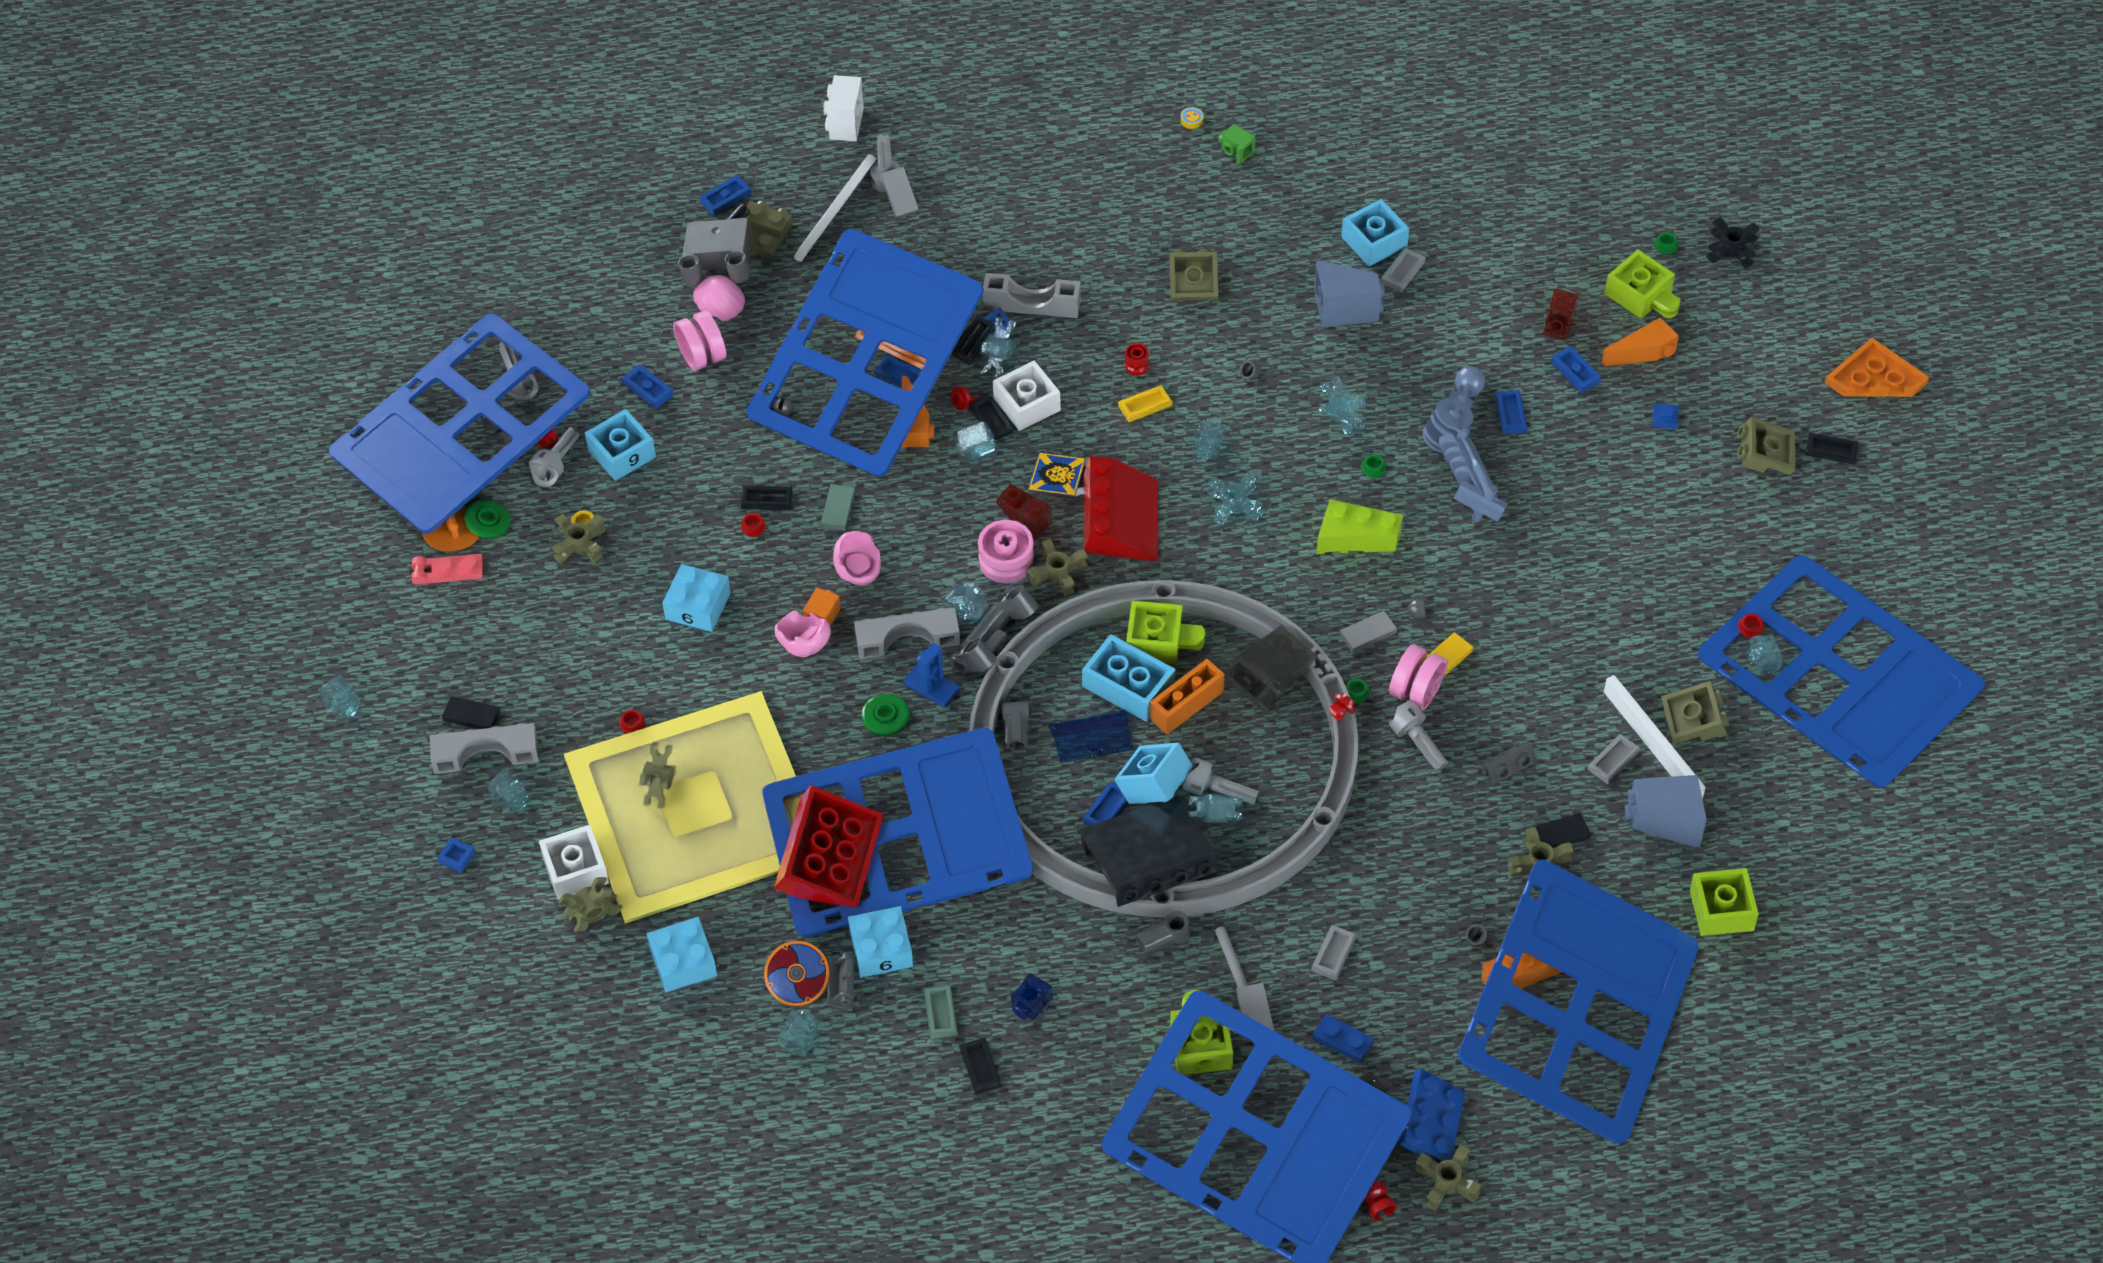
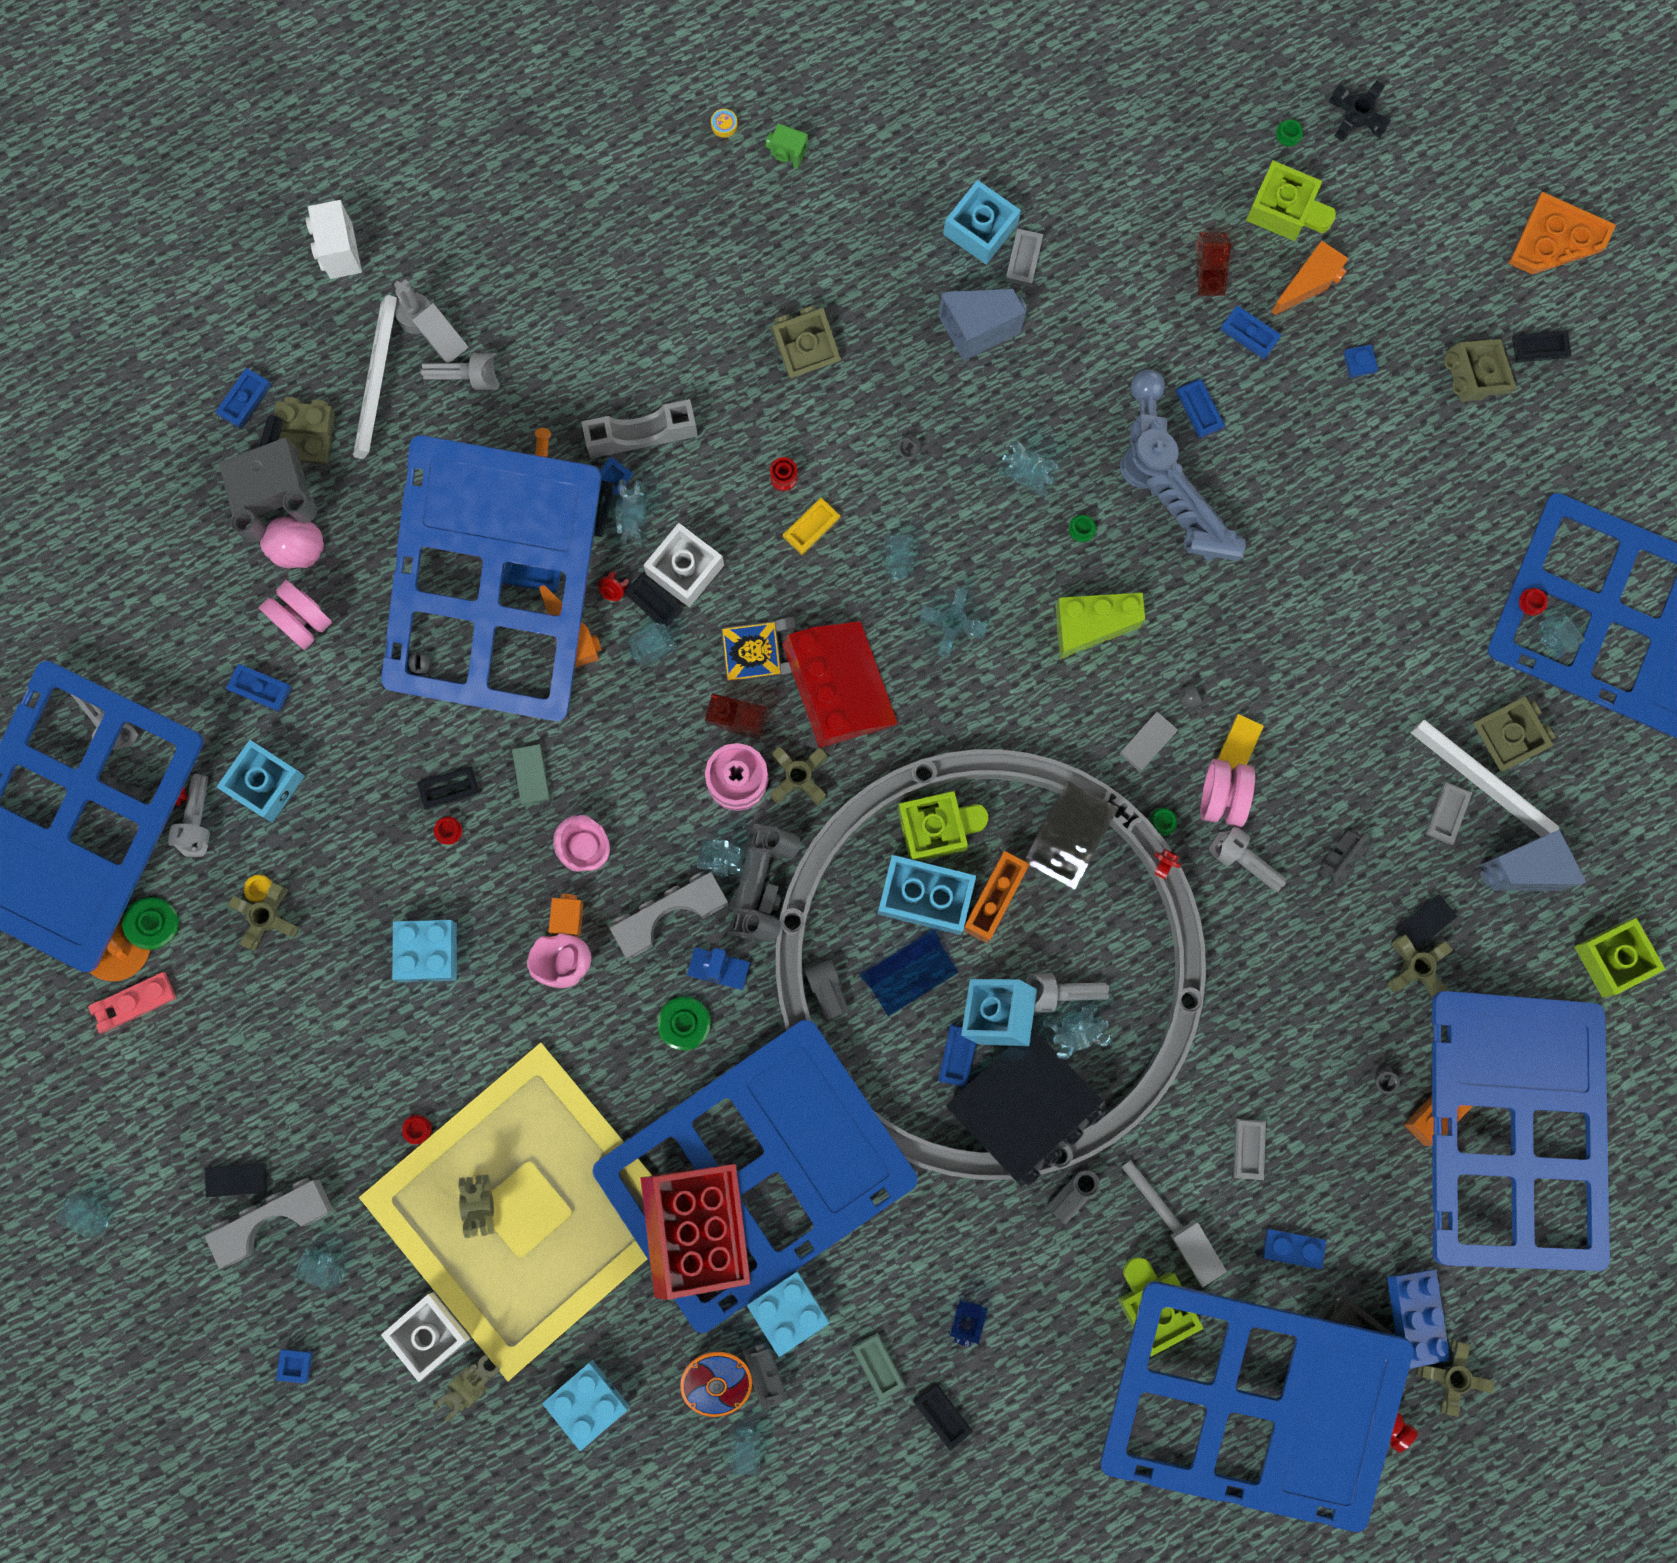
camera: 25 degrees left, 25 degrees up
(919, 224) = (479, 371): none -> light grey piece

